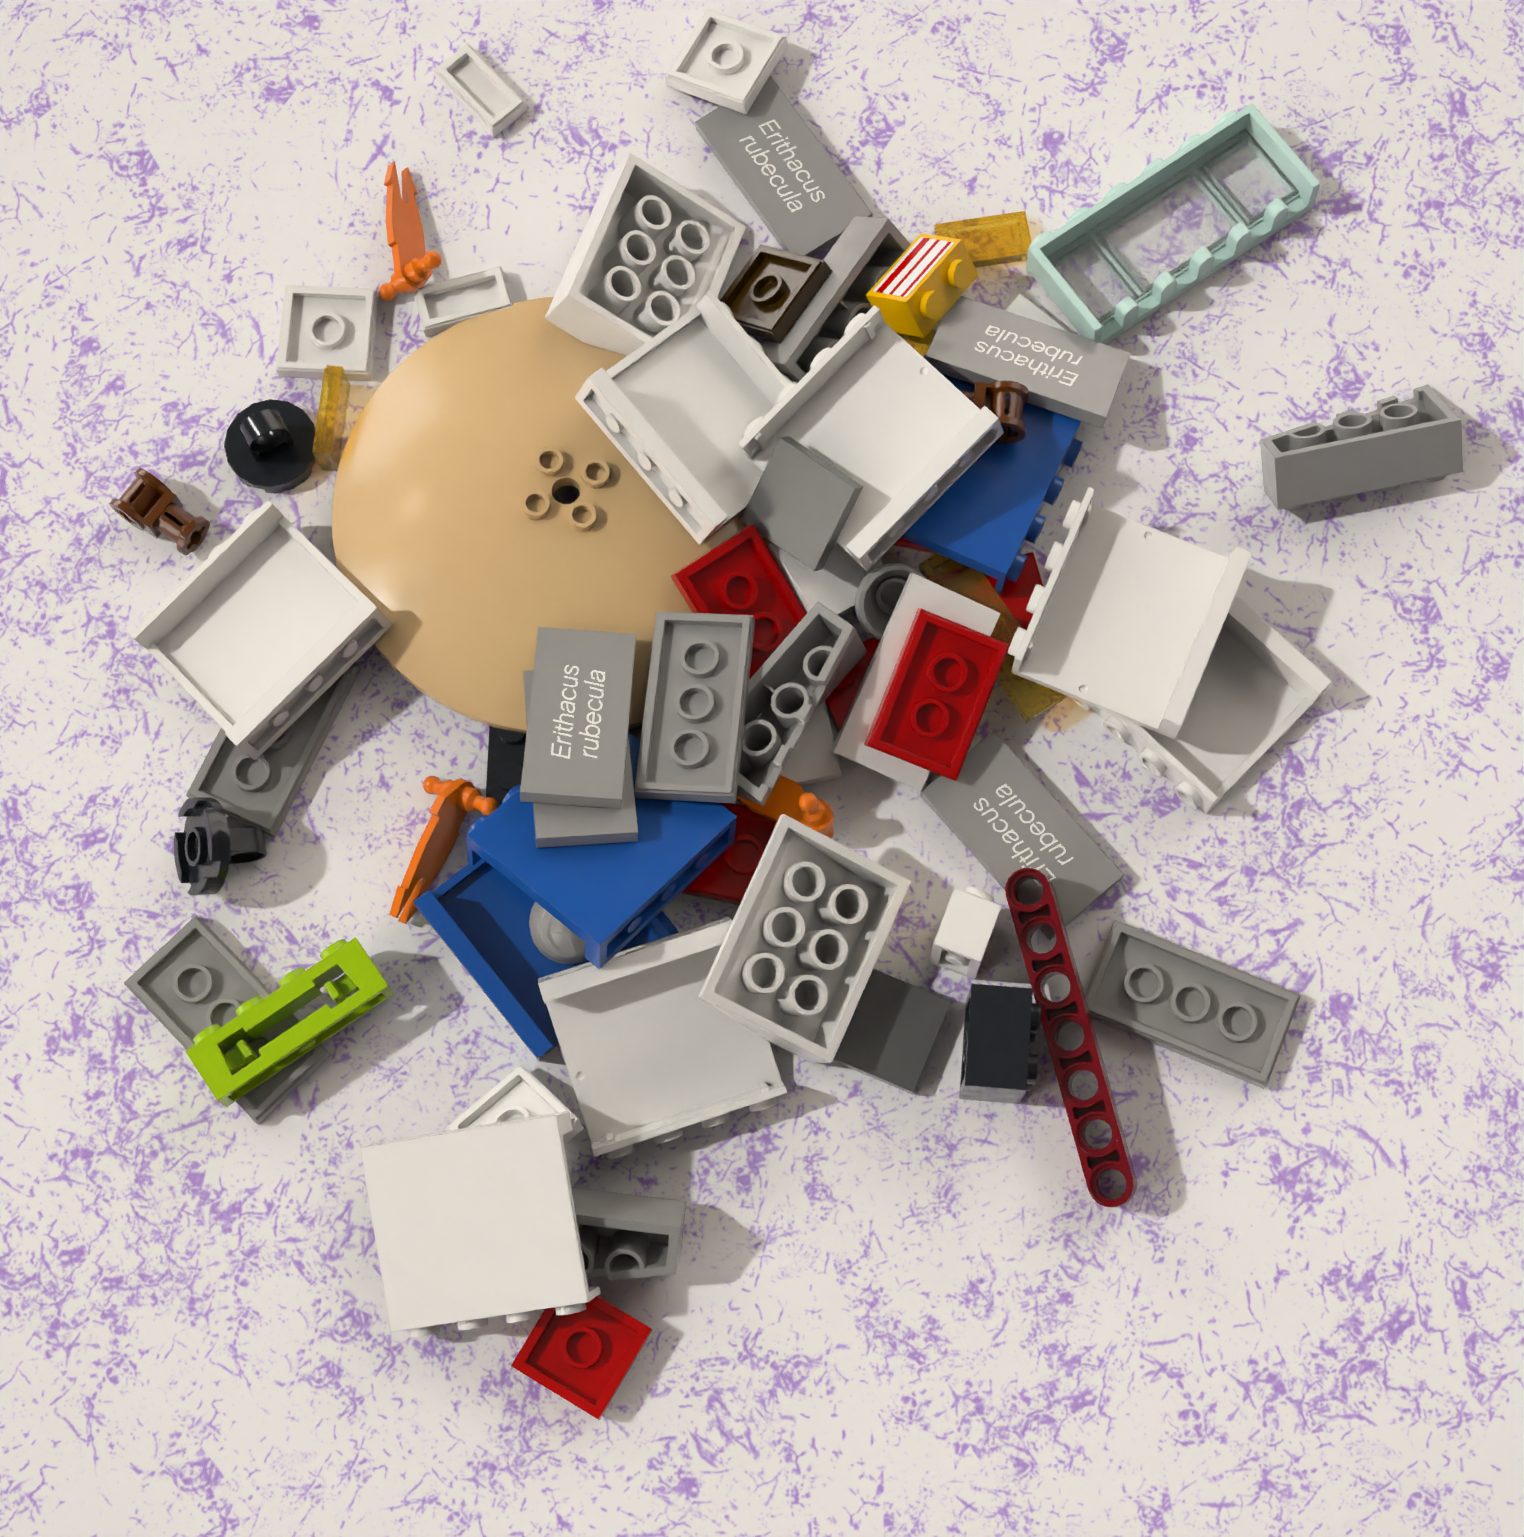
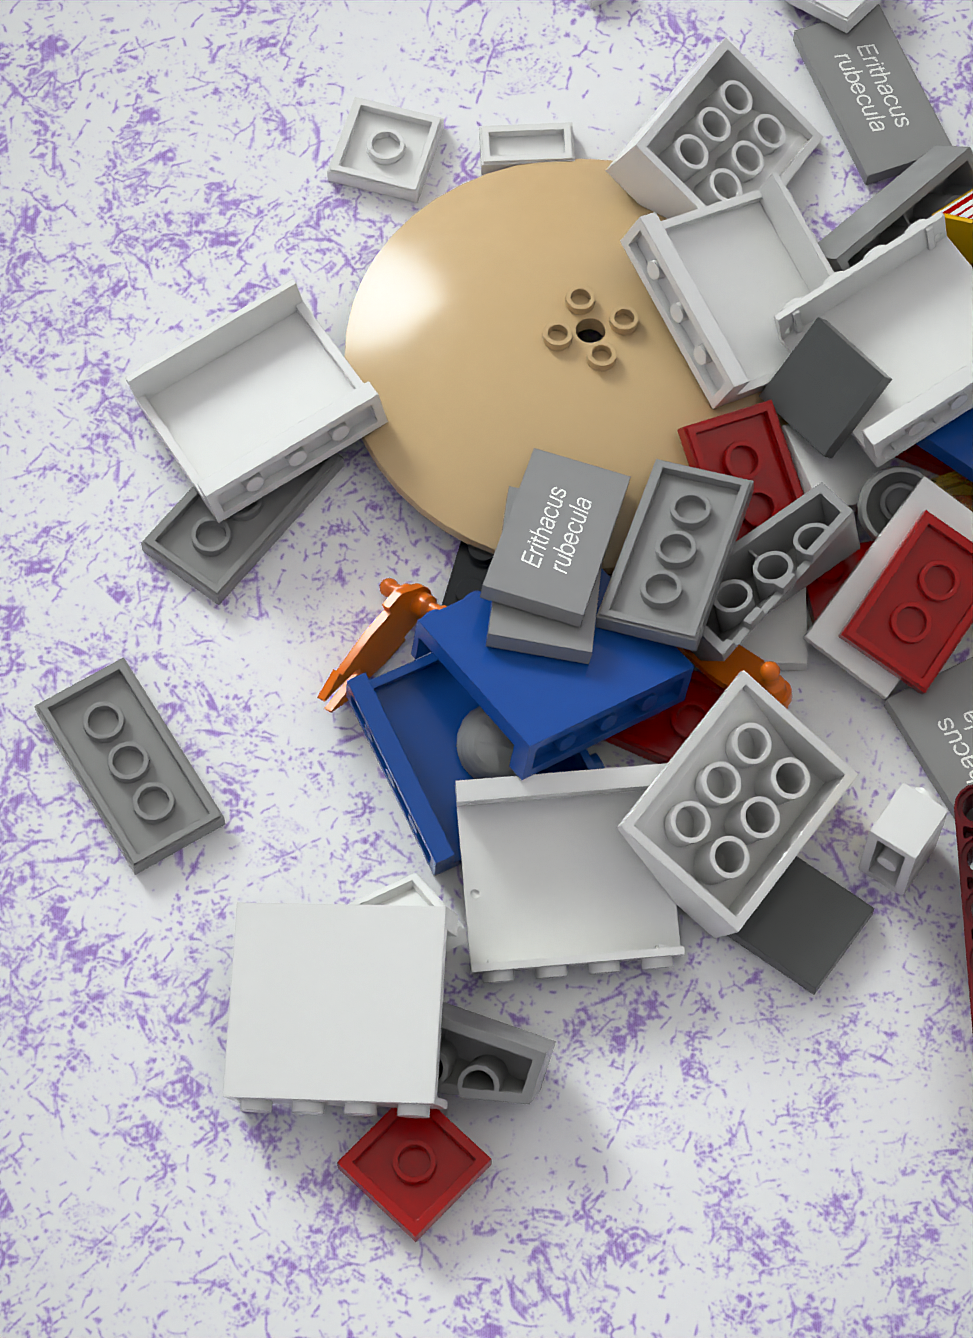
camera: 10 degrees right, 10 degrees down
(156, 509) = (180, 274): reddish brown connector -> none
(209, 846) = (157, 592): black tile -> none
(260, 1015) = (266, 758): lime brick -> none
(271, 445) = (306, 240): black tile -> none
(331, 418) = (371, 224): clear yellow tile -> none
(406, 237) = (484, 72): orange piece -> none
(774, 291) = (842, 195): dark brown tile -> none
(996, 1044) = (916, 954): black brick -> none

